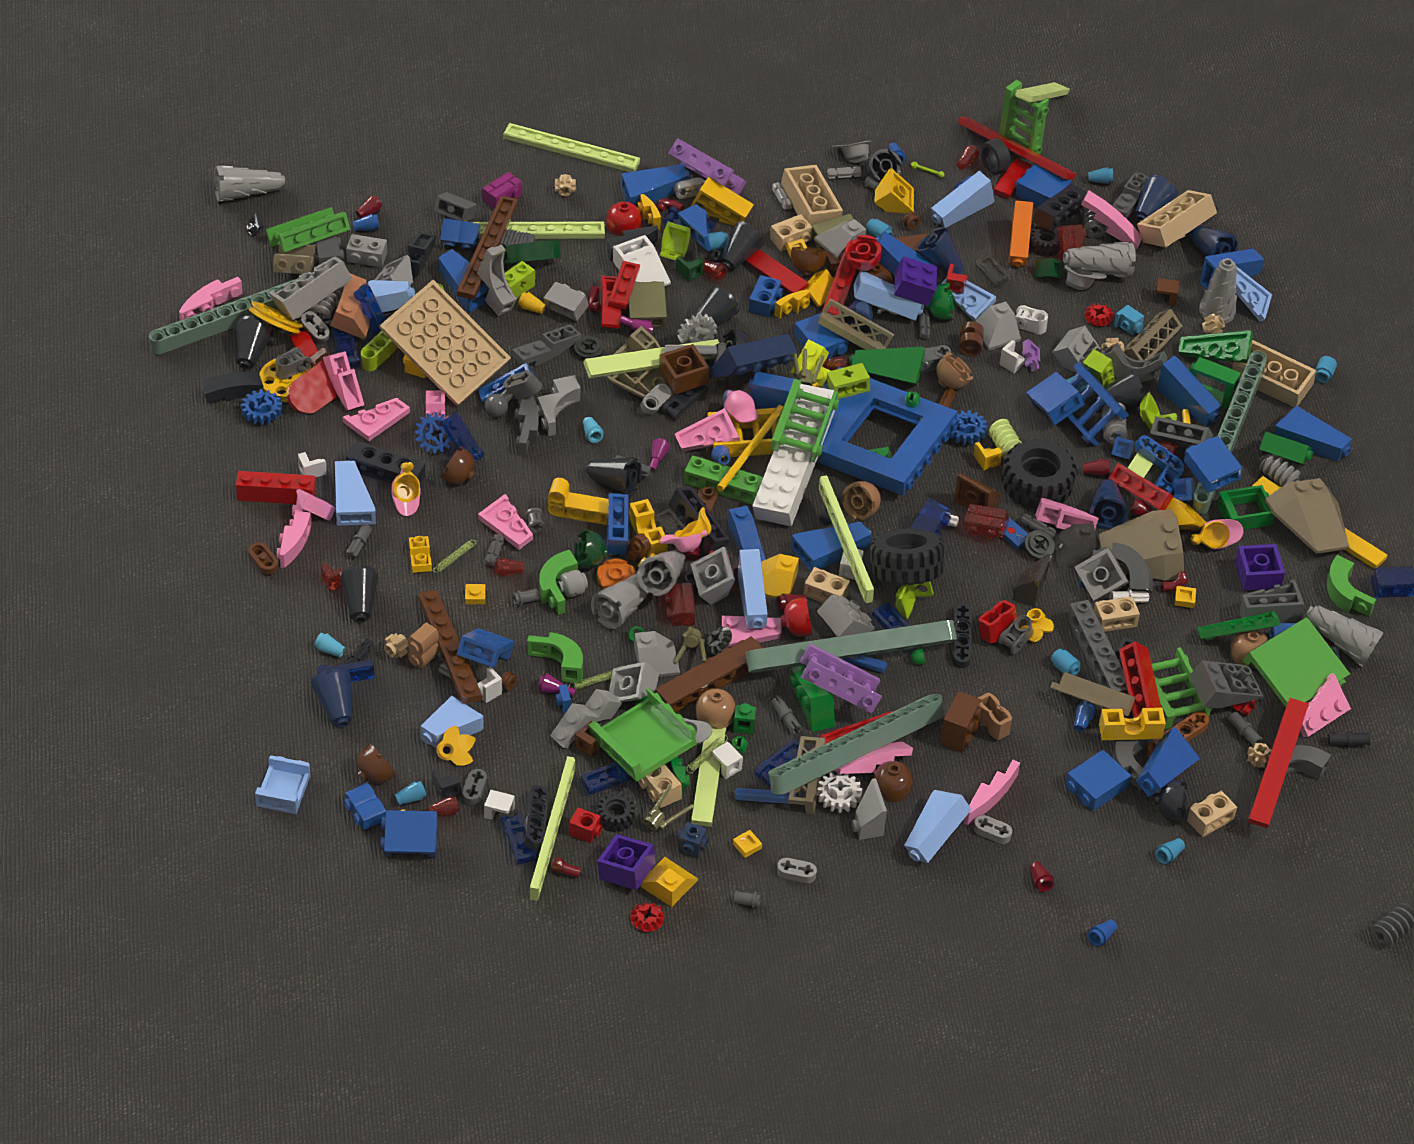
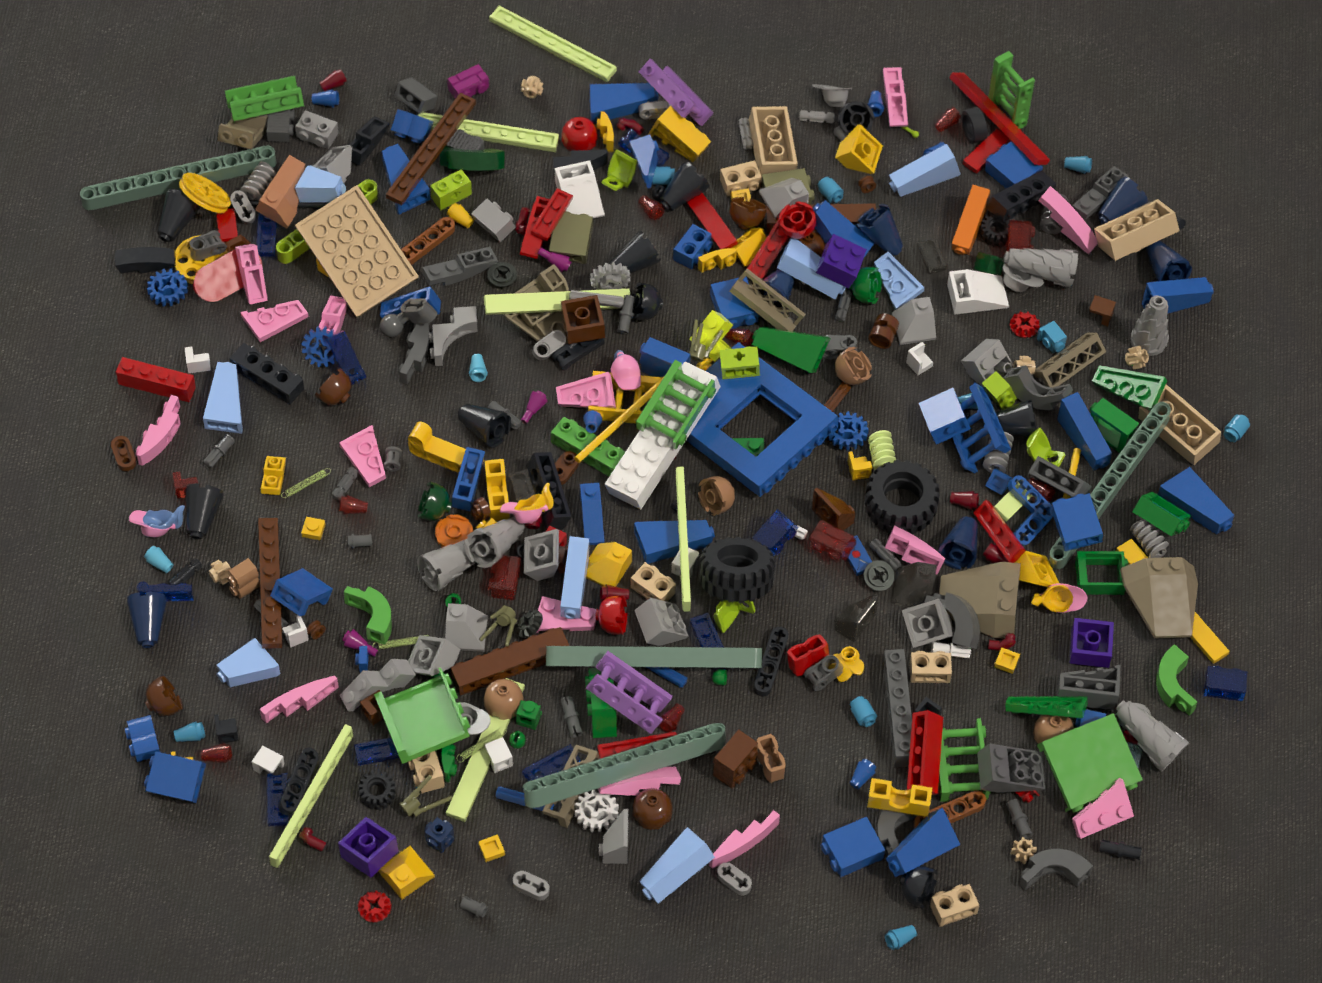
camera: 15 degrees right, 10 degrees up
(210, 296) = (150, 156): bright pink slope -> none
(243, 182) = (216, 34): light grey cone -> none
(257, 226) = (218, 85): black arm -> none
(283, 785) = (74, 700): light blue panel -> none
(311, 288) = (244, 168): light grey wedge -> none
(315, 505) = (186, 405): bright pink slope -> none
(320, 612) = (157, 522): none -> medium blue hair
(370, 307) = (297, 197): clear blue plate -> none
(406, 490) = (276, 406): yellow hair -> none
(458, 745) = (248, 690): yellow plate -> none
(470, 786) = (255, 738): dark grey beam -> none
(492, 273) = (424, 181): light grey arch -> none
(511, 318) = (429, 243): none -> dark orange beam
(516, 741) = (305, 695): none -> bright pink slope
(550, 575) = (392, 520): bright green arch -> none
(572, 583) = (407, 535): light grey head -> none
(585, 825) = (342, 791): red brick -> none
(689, 269) = (628, 202): dark green panel -> none
(754, 356) = (652, 321): dark blue slope -> none
(885, 702) = (671, 718): none -> clear red cone
(912, 146) = (895, 97): none -> bright pink slope
(912, 403) = (799, 396): green hinge -> none
(956, 281) = (887, 263): red panel -> none
(1032, 319) = (950, 319): white piece -> none
(1032, 355) = (940, 358): medium lavender plate -> none
(1042, 92) = (1038, 63): yellowish green tile -> none
(1042, 878) = (764, 940): dark red cone -> none
(1044, 292) = (976, 291): none -> white slope
(1094, 693) = (876, 754): dark tan fence -> none
(1184, 488) = (1043, 541): blue panel -> none
(1253, 295) = (1186, 327): light blue wing -> none
(1278, 763) = (1035, 865): red tile -> none

